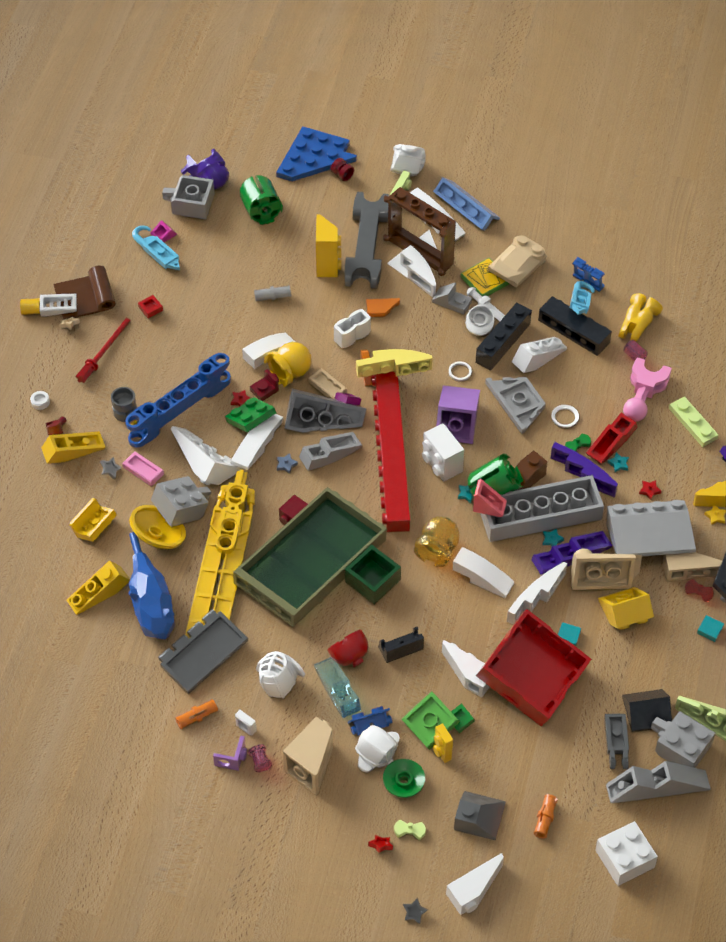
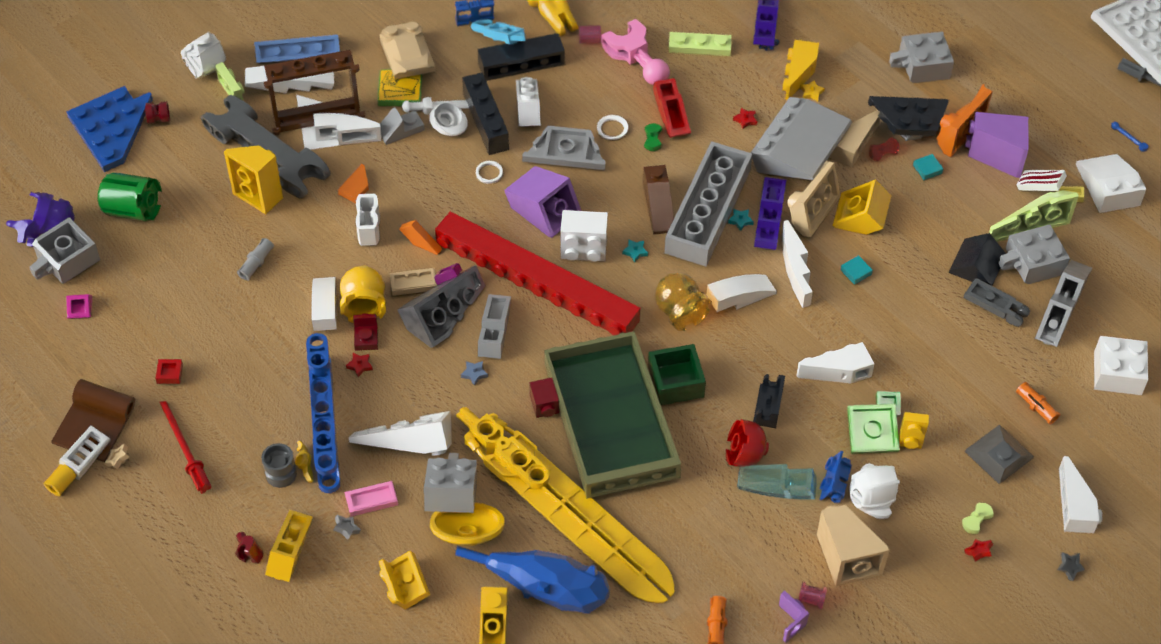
camera: 55 degrees left, 0 degrees up
(40, 400) = (194, 543): white tile -> none
(157, 249) = (99, 322): medium azure plate -> none
(203, 652) = (650, 572): dark grey hinge -> none
(245, 722) = (762, 583): white tile -> none
(250, 414) = (393, 364): green plate -> none
(255, 442) = (429, 377): white slope -> none
(278, 680) = (735, 525): white piece -> none
(397, 360) = (450, 204): light yellow slope -> none
(404, 770) = (923, 479): green dish -> none
(488, 500) = (679, 231): coral slope -> none
(498, 475) = (643, 212): green cylinder -> none
(533, 667) = (883, 311): red tile -> none
(583, 467) = (685, 147): dark purple slope -> none
(619, 462) = (698, 121): teal piece -> none

